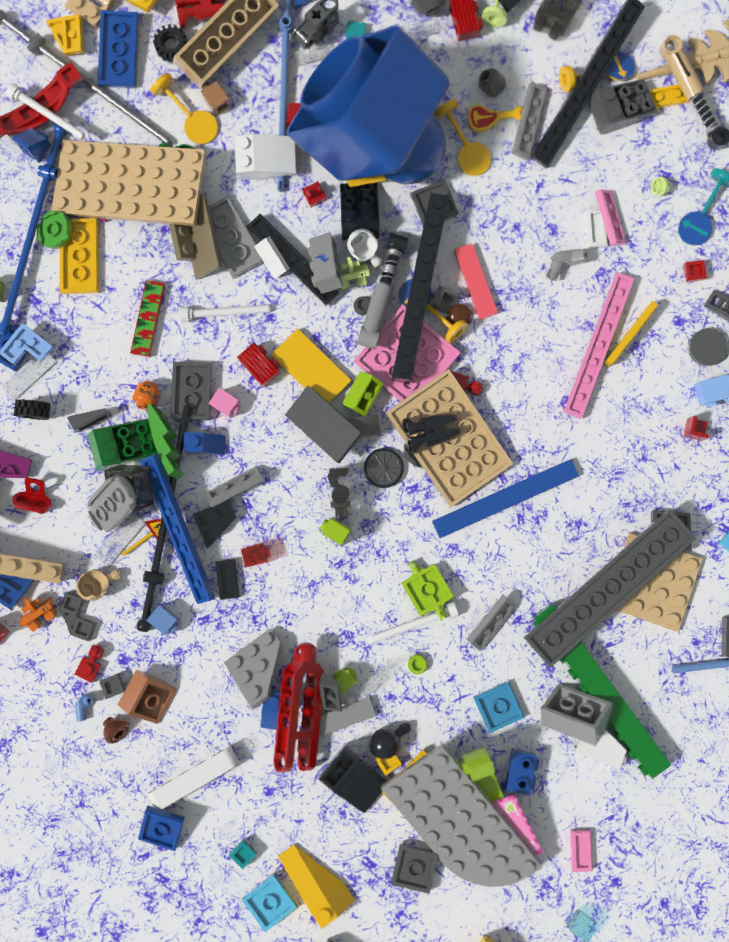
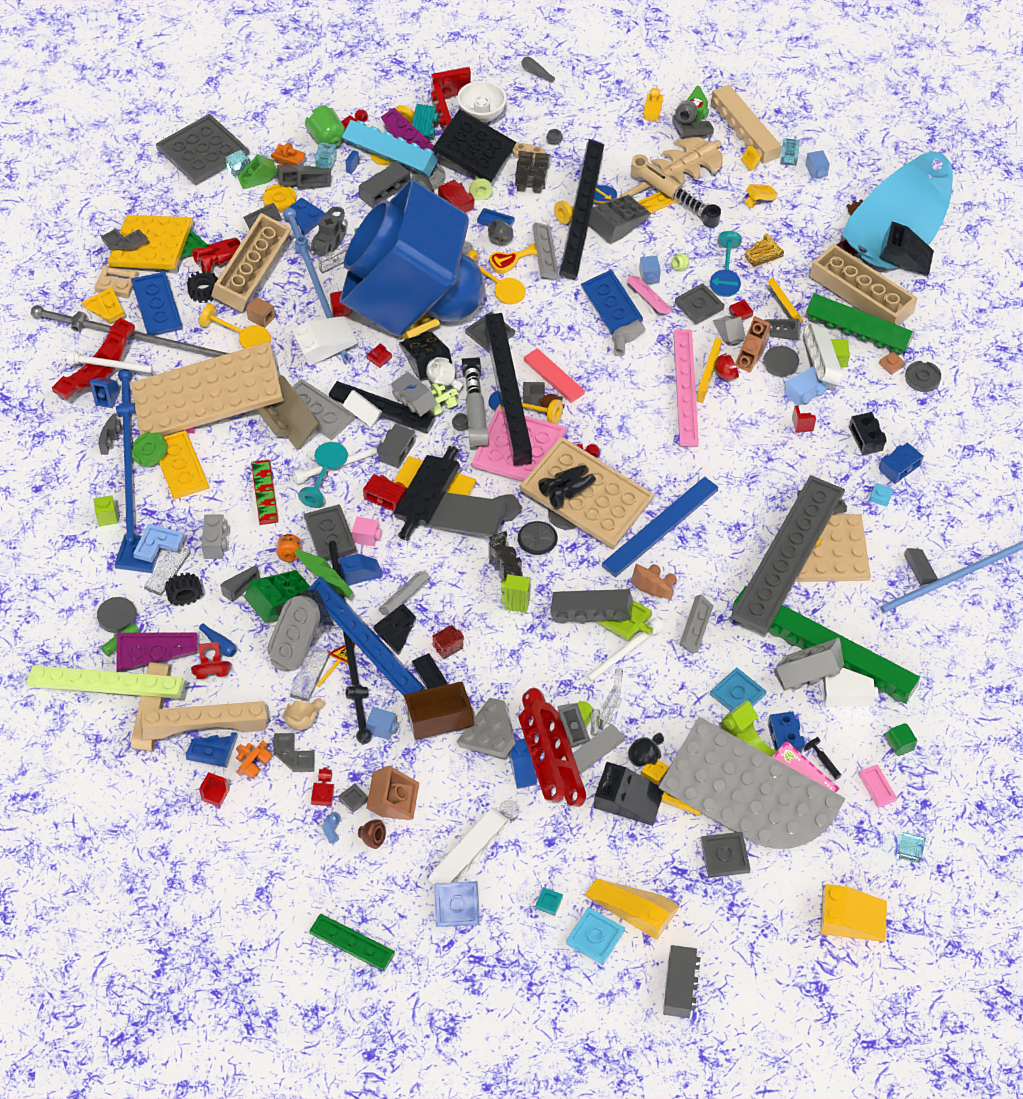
camera: 20 degrees left, 30 degrees down
(25, 192) = (109, 433): none -> dark grey slope
(50, 474) = (226, 646): none -> blue piece
(62, 824) = (352, 942): none -> green tile
(81, 356) = (214, 536): none -> light grey brick
(216, 631) = (438, 710): none -> reddish brown piece
(221, 303) = (329, 456): none -> teal piece
(289, 312) = (396, 445): none -> dark grey brick
(297, 379) = (426, 491): none -> black plate
(362, 393) = (492, 480): lime brick -> none
(400, 571) = (591, 605): none -> dark grey brick
(417, 664) = (644, 683): lime tile -> none
(464, 560) = (650, 582): none -> nougat connector
(494, 58) = (488, 216): none -> blue tile
(545, 804) = (823, 758): none -> black piece
(569, 212) = (611, 301): none -> blue tile
(624, 186) = (650, 269): none -> medium blue brick
(624, 817) = (901, 739): none -> green piece
(648, 338) = (726, 367): none -> red hair
(657, 246) = (699, 303): none -> dark grey plate
(673, 289) = (730, 328): none -> light grey slope
(686, 324) = (754, 344): none -> nougat slope

